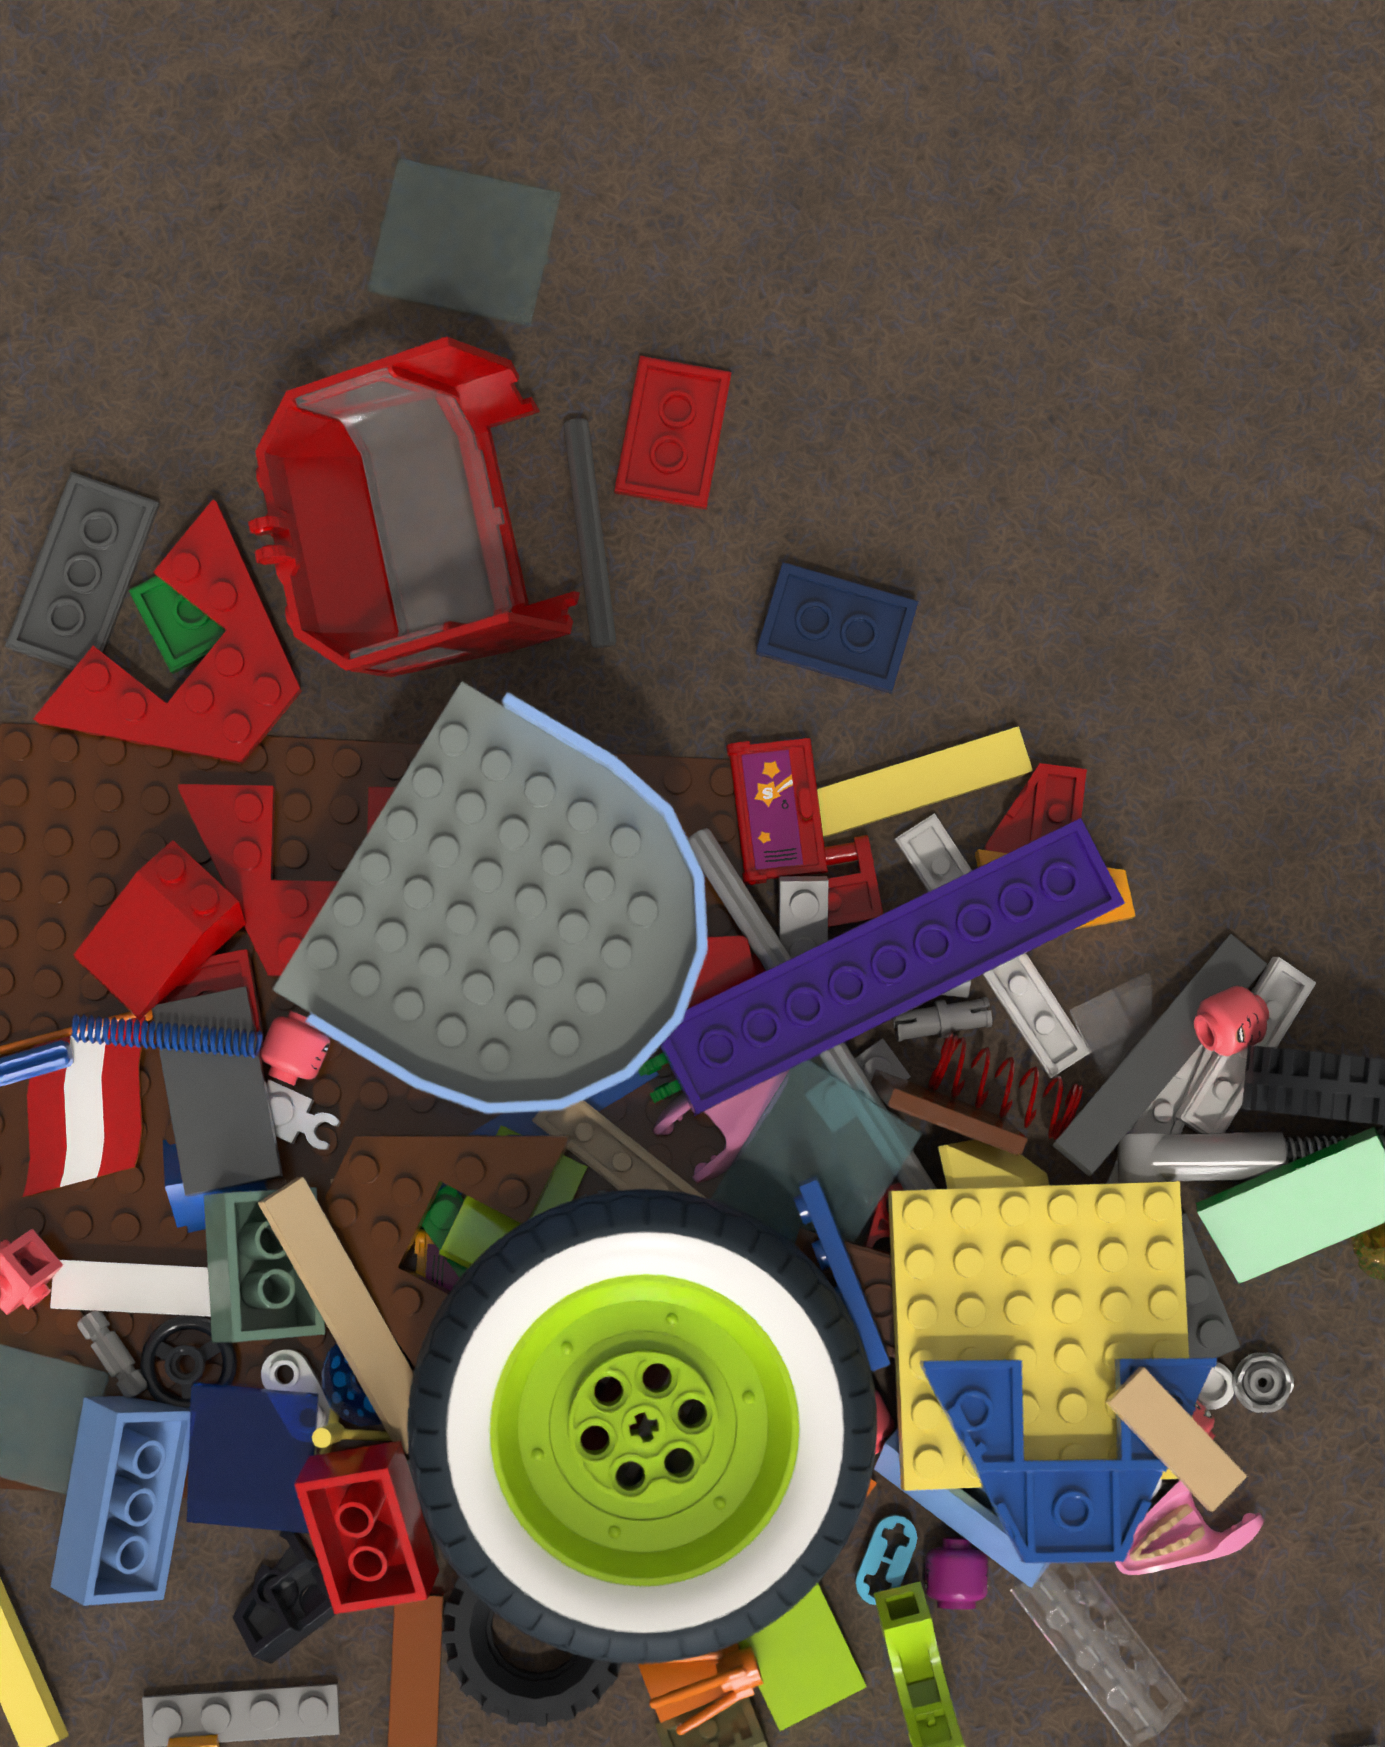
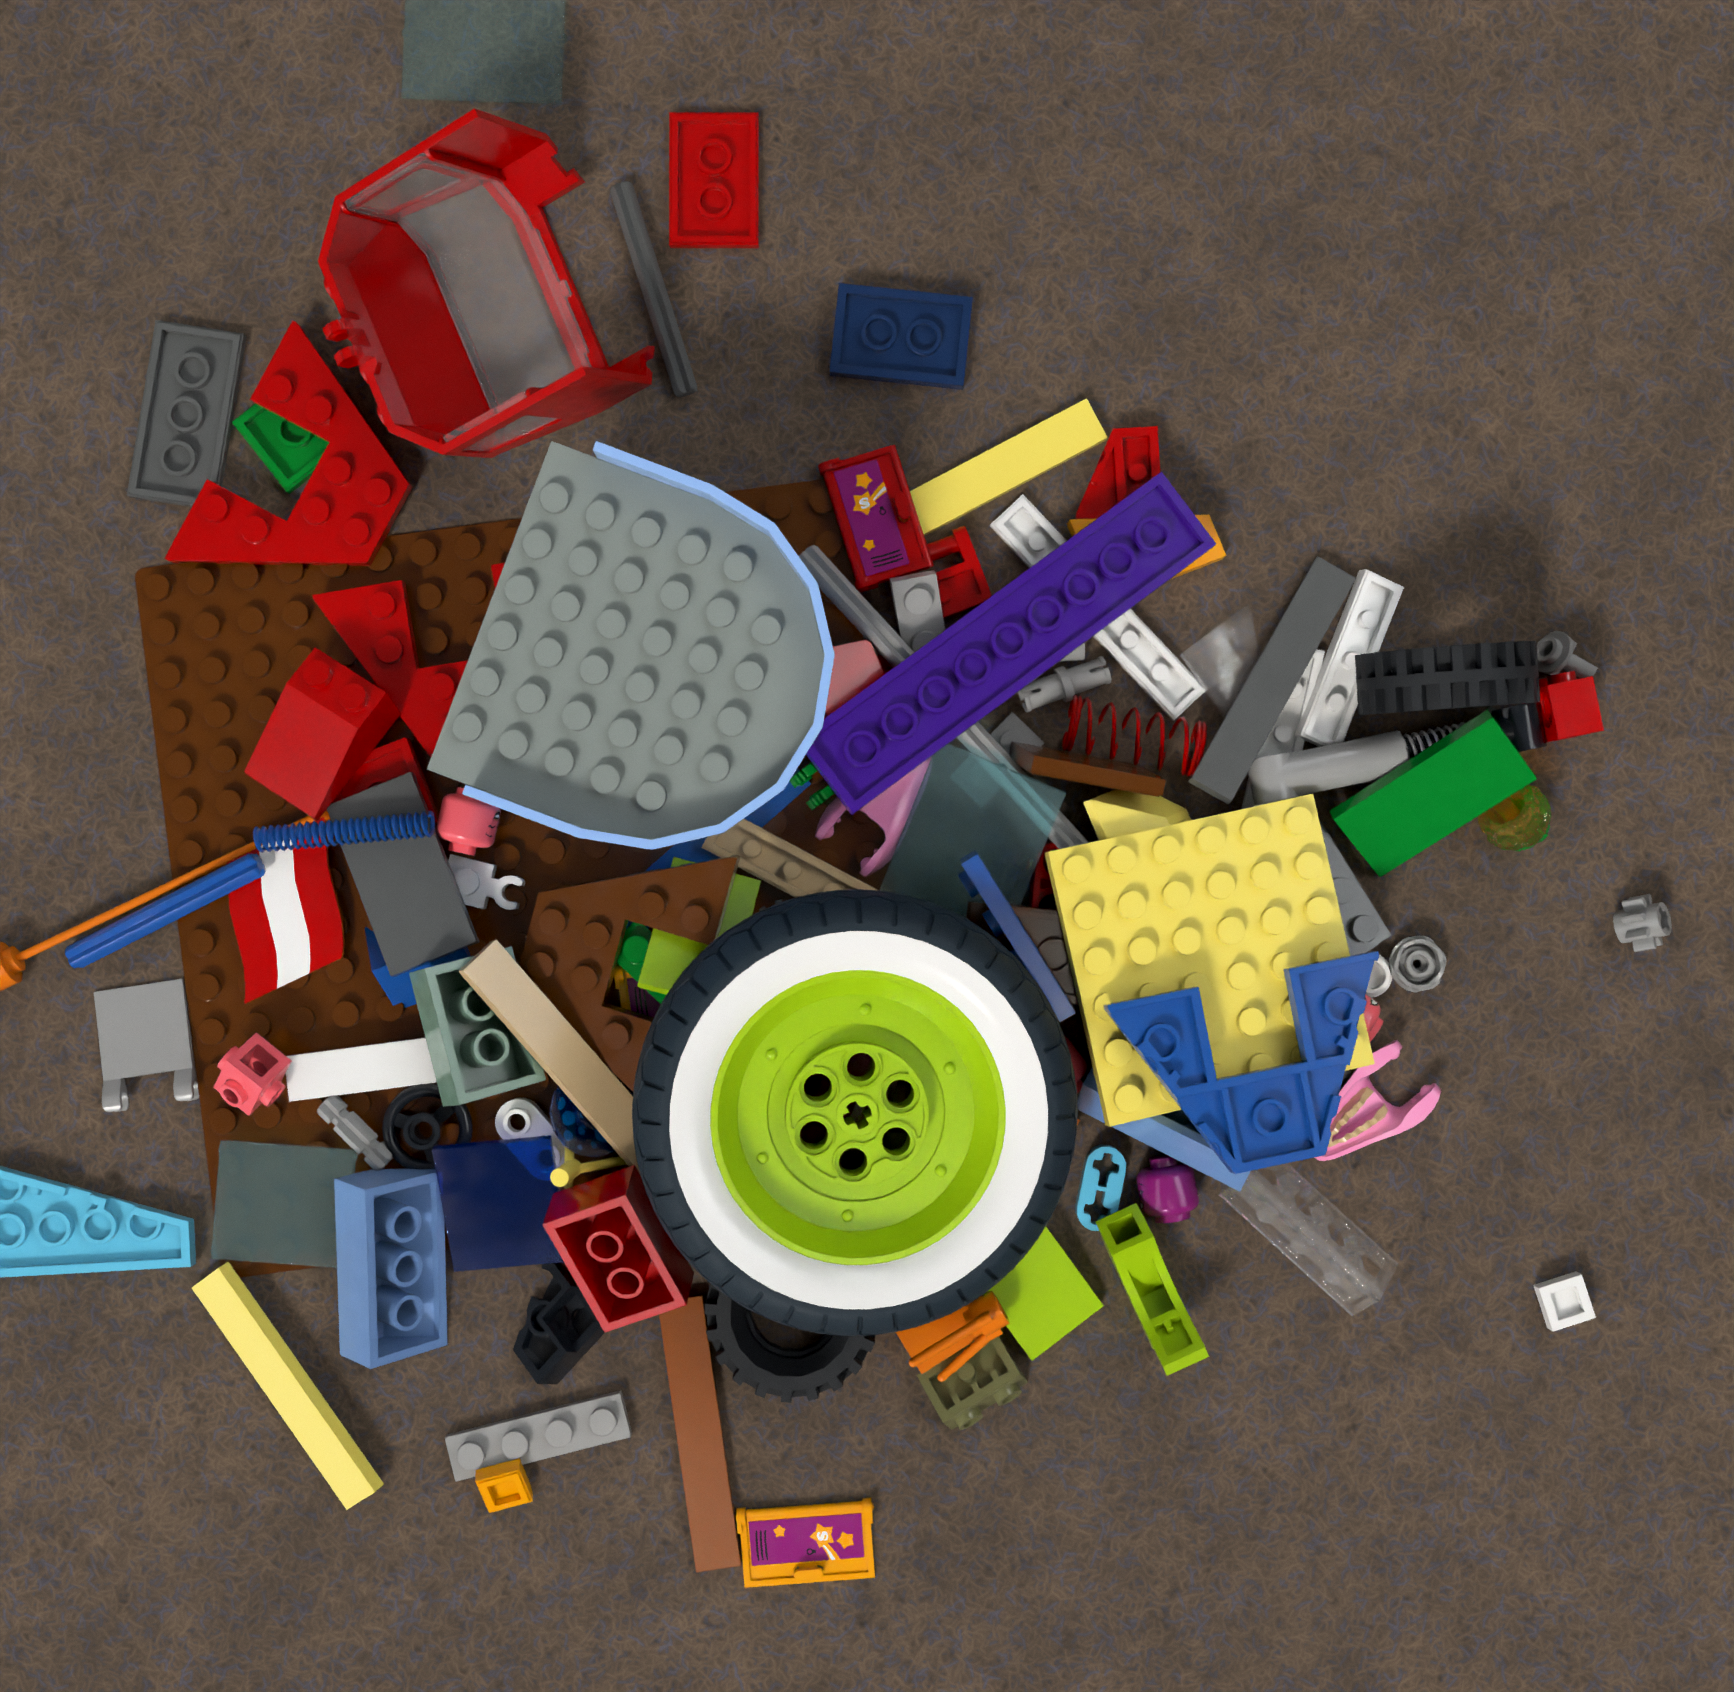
camera: 10 degrees left, 5 degrees up
(1176, 1439) = (1354, 1033): tan tile -> none
(1231, 1021) = (1335, 635): coral head -> none

